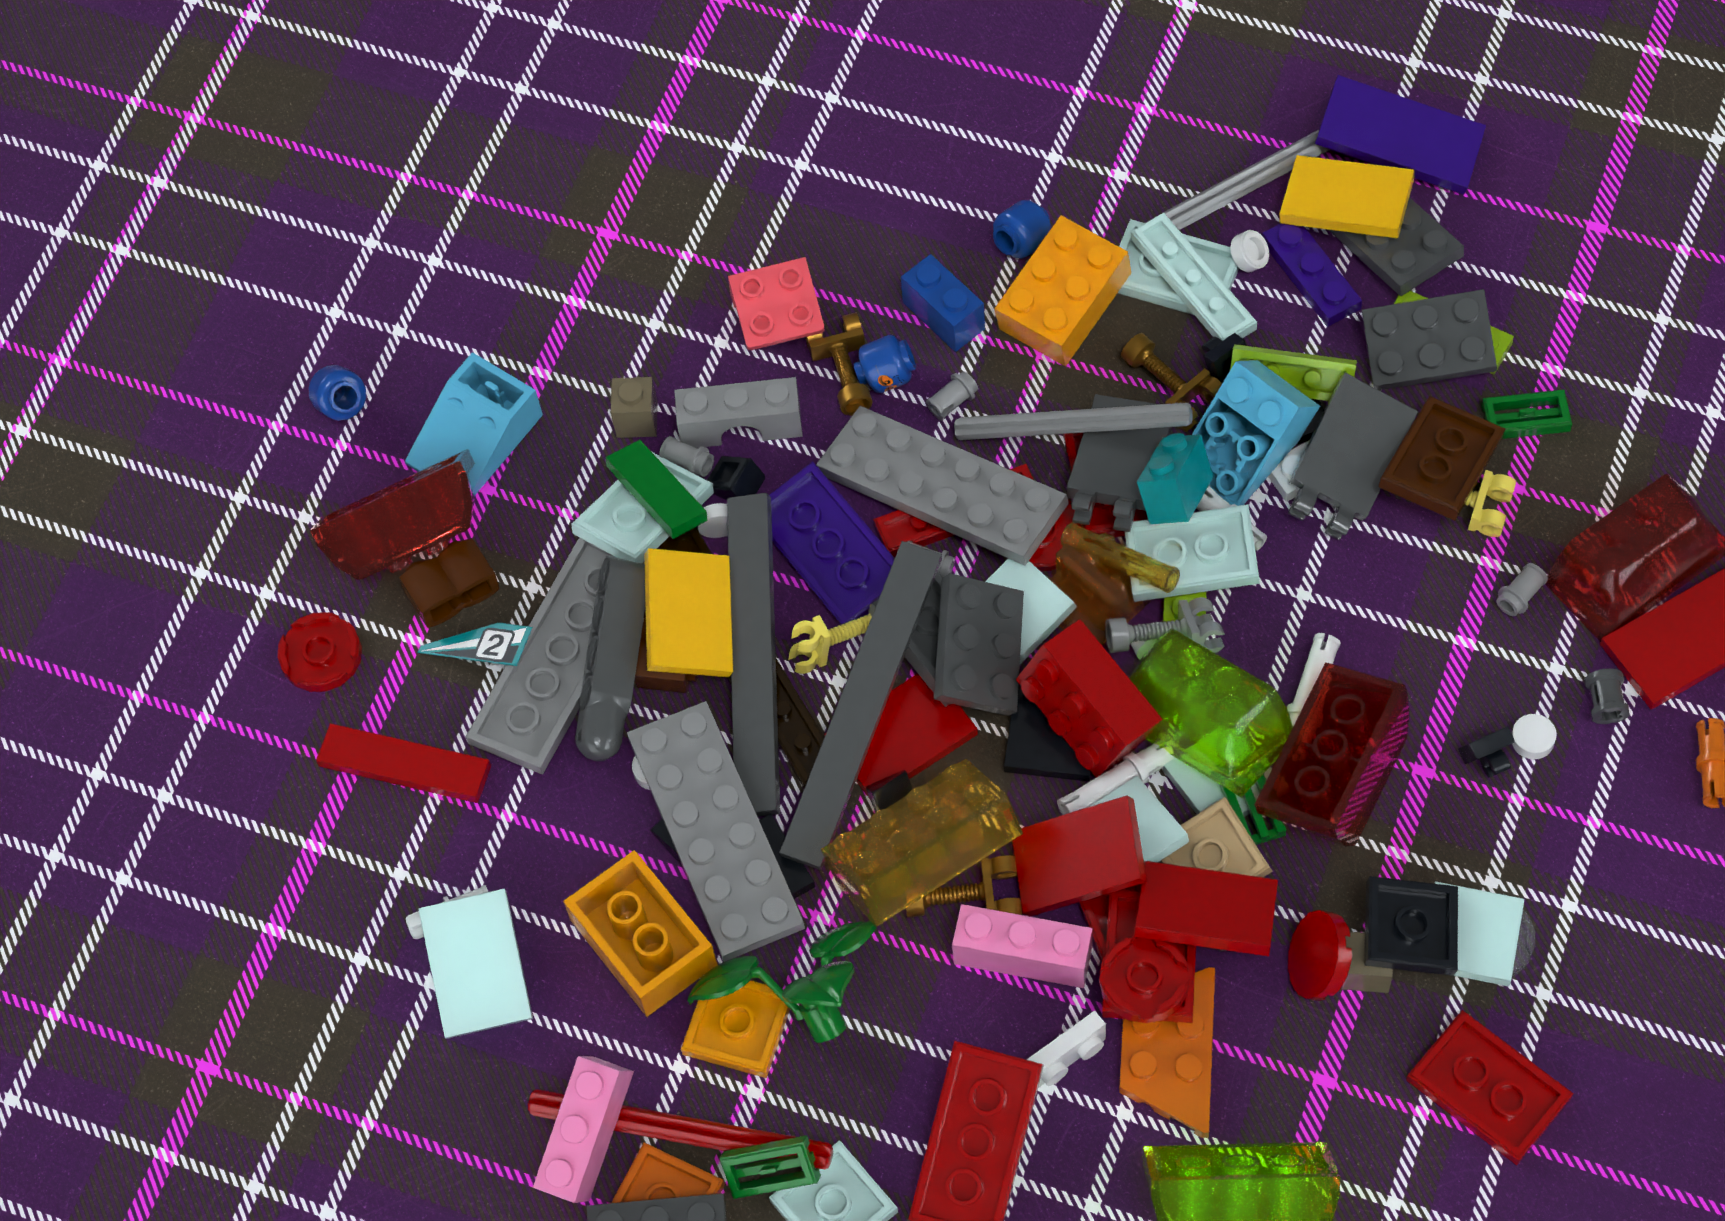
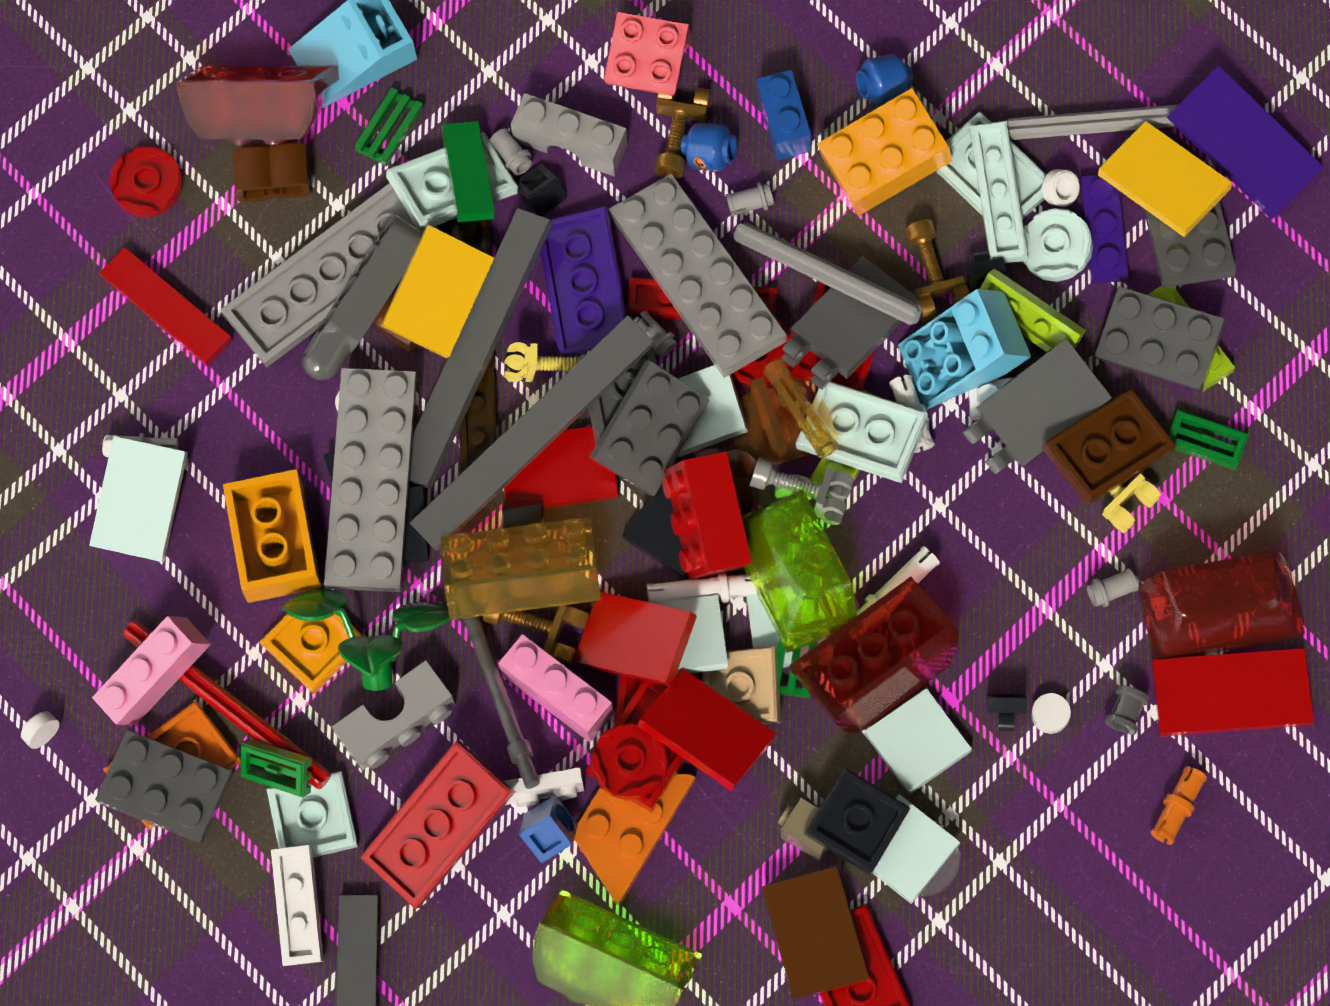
camera: 25 degrees right, 10 degrees up
(493, 644) = (277, 239): sticker -> none
(551, 460) = (403, 102): none -> green tile
(634, 407) = (489, 89): dark tan brick -> none
(717, 521) = (502, 218): white tile -> none
(853, 1090) = (372, 739): none -> light grey arch
(1020, 1021) = (518, 748): none -> flat silver bar
(1096, 1089) = (548, 829): none -> blue brick
(1175, 479) = (879, 363): teal brick -> none
(1279, 302) = (1057, 245): none -> light aqua tile
(1319, 955) = (773, 808): red tile -> none
(1418, 826) = (917, 741): none -> light aqua tile
(1431, 1062) = (815, 933): none -> reddish brown tile

